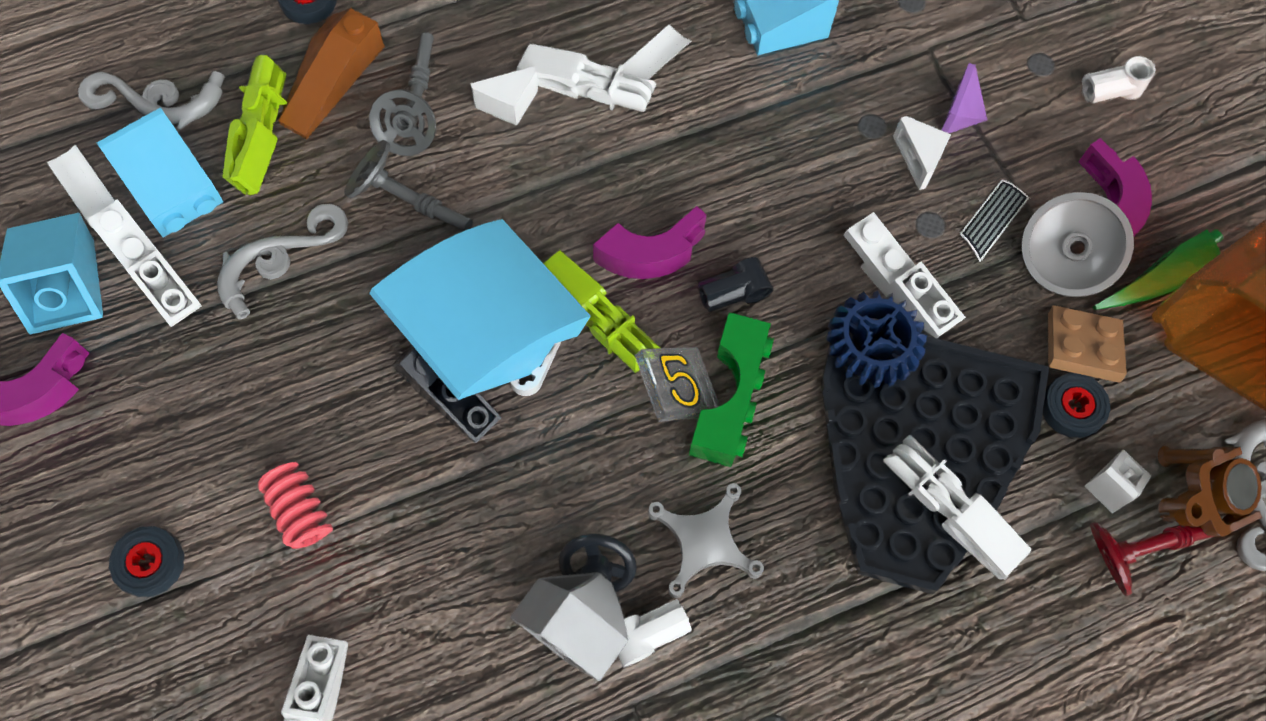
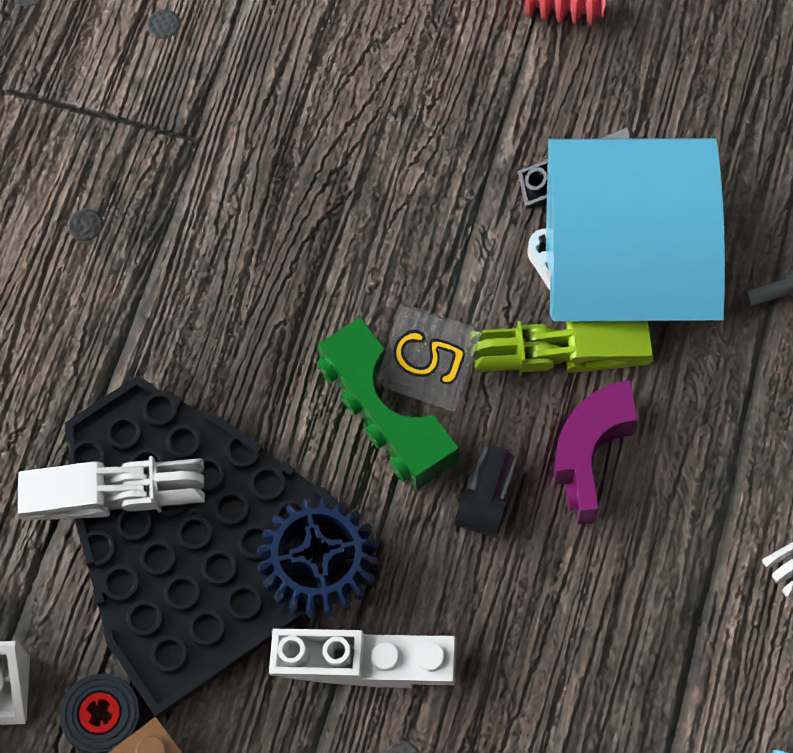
camera: 135 degrees right, 0 degrees up
(580, 610) = (292, 112): light grey piece -> none
(653, 631) = (241, 173): white piece -> none
(705, 540) = (272, 275): light grey piece -> none

